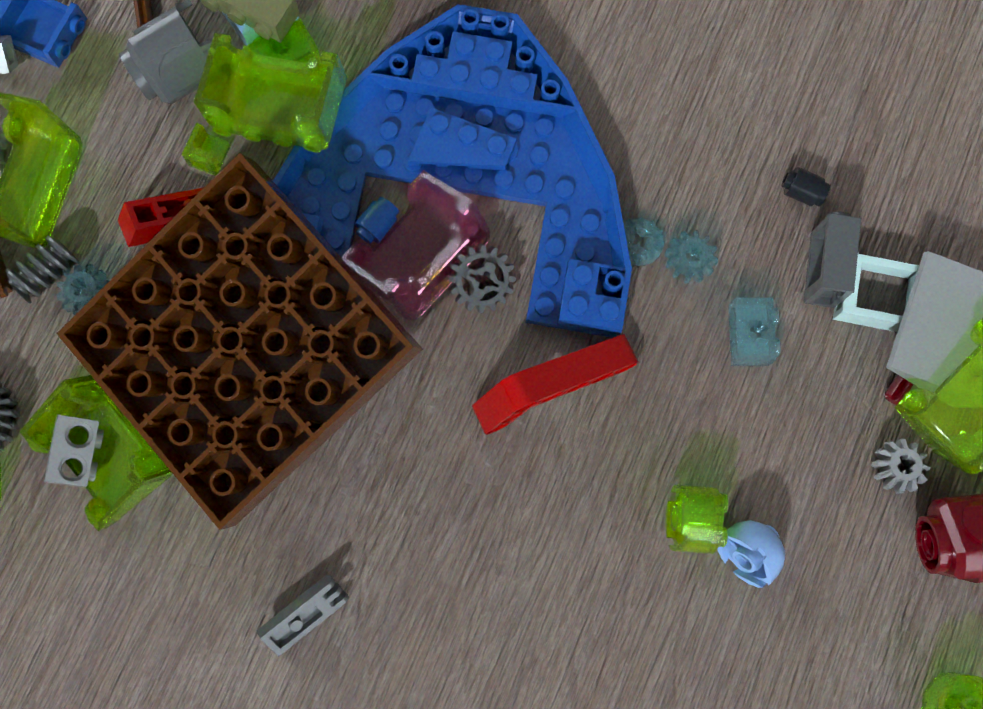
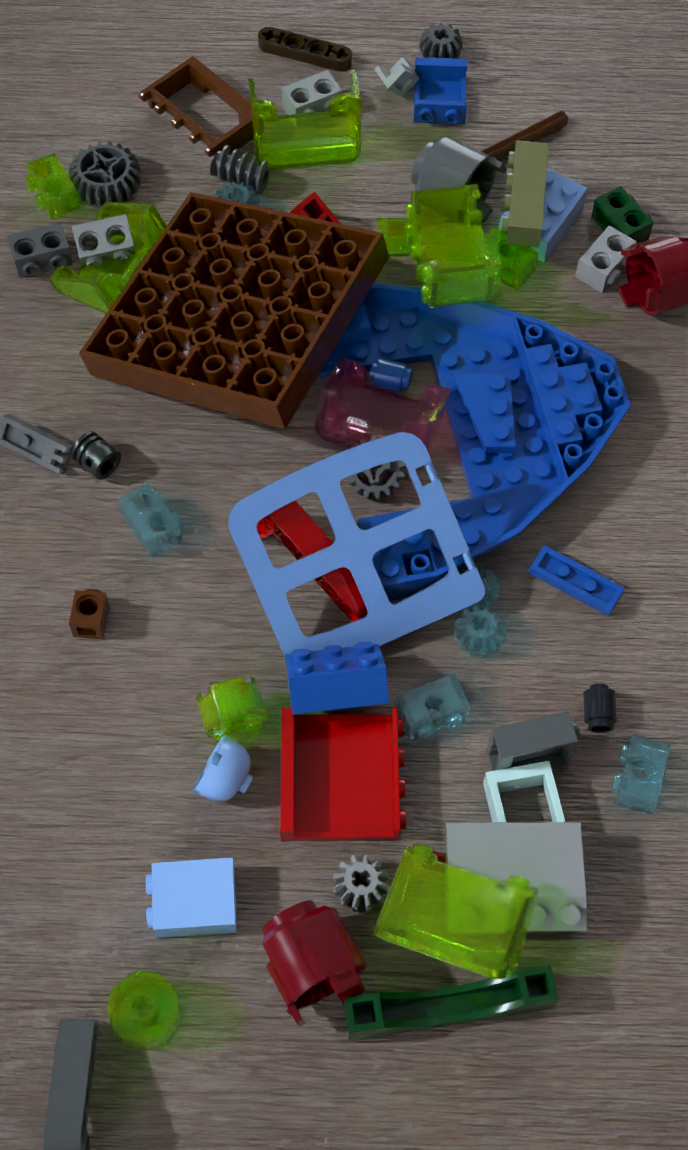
camera: 70 degrees right, 15 degrees down
(37, 525) = (40, 249): none -> dark grey brick
(346, 554) = (94, 455): none -> pearl dark grey piece
(447, 531) = (148, 520): none -> clear light blue brick
(545, 626) = (92, 625): none -> reddish brown brick
(588, 338) = (356, 547): none -> medium blue window
(670, 149) = (576, 580): none -> blue plate
(703, 408) = (336, 678): none -> blue brick
(787, 442) = (341, 777): none -> red panel
(865, 625) = (192, 898): none -> light blue brick
(897, 179) = (651, 759): none -> clear light blue brick

